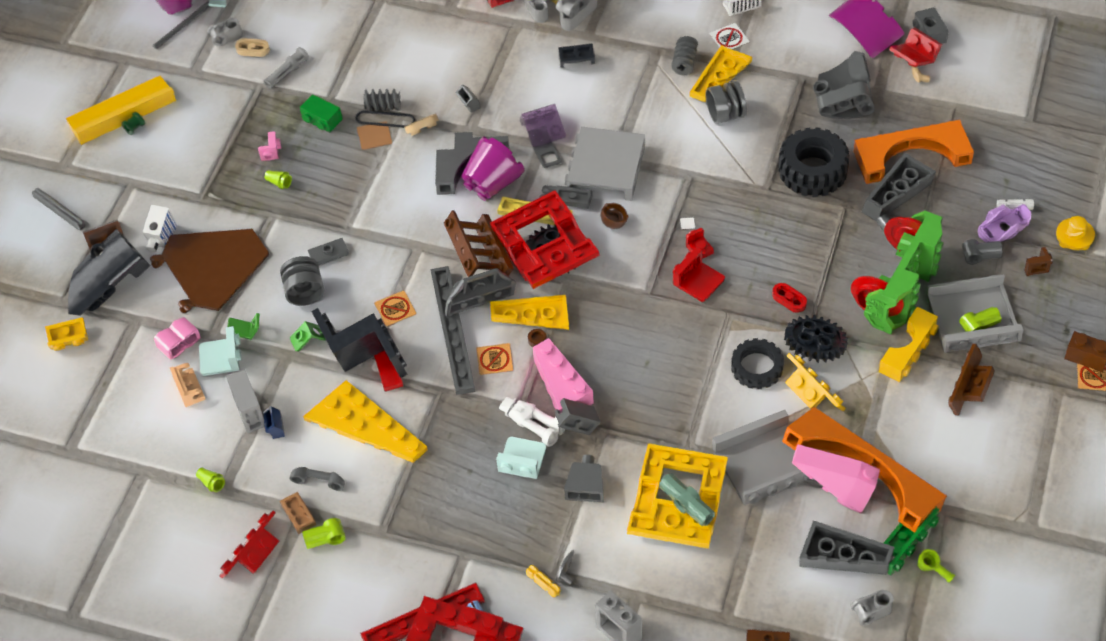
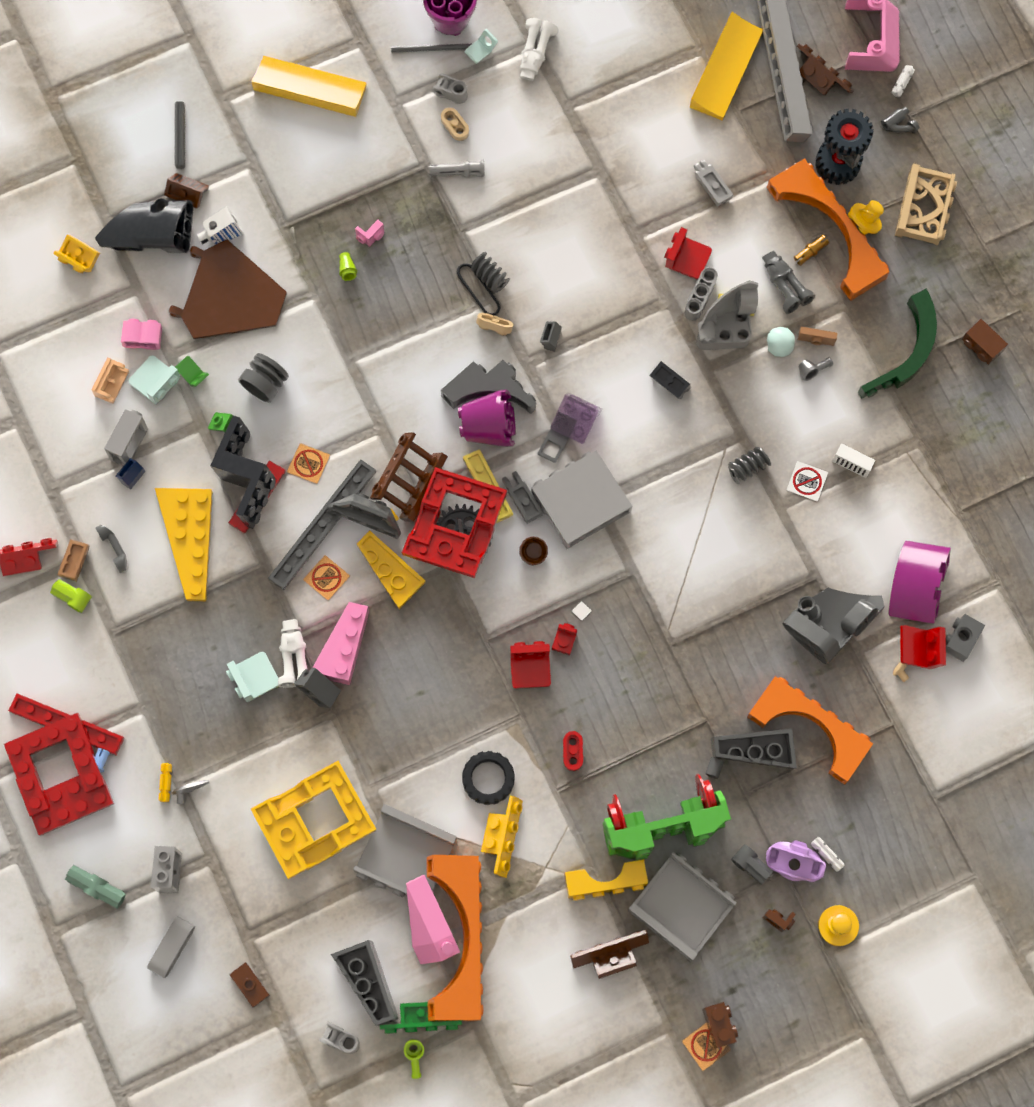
camera: 40 degrees right, 20 degrees up
(133, 123) = (302, 109): dark green bush -> none
(212, 480) = (48, 474): lime cone -> none
(321, 113) = (436, 238): green brick -> none
(329, 251) = (314, 367): dark grey plate -> none
(374, 136) = (455, 296): medium nougat sticker -> none
(536, 336) = (370, 593): reddish brown tile -> none
(585, 481) = (272, 740): dark grey torso -> none
(686, 499) = (308, 832): sand green piece -> none
(720, 70) = (759, 506): yellow wing -> none
(726, 101) = (723, 541): dark grey wheel -> none
(814, 144) = (735, 639): black tyre -> none
(815, 338) = (532, 811): black gear -> none
(980, 320) = (672, 917): lime piece -> none

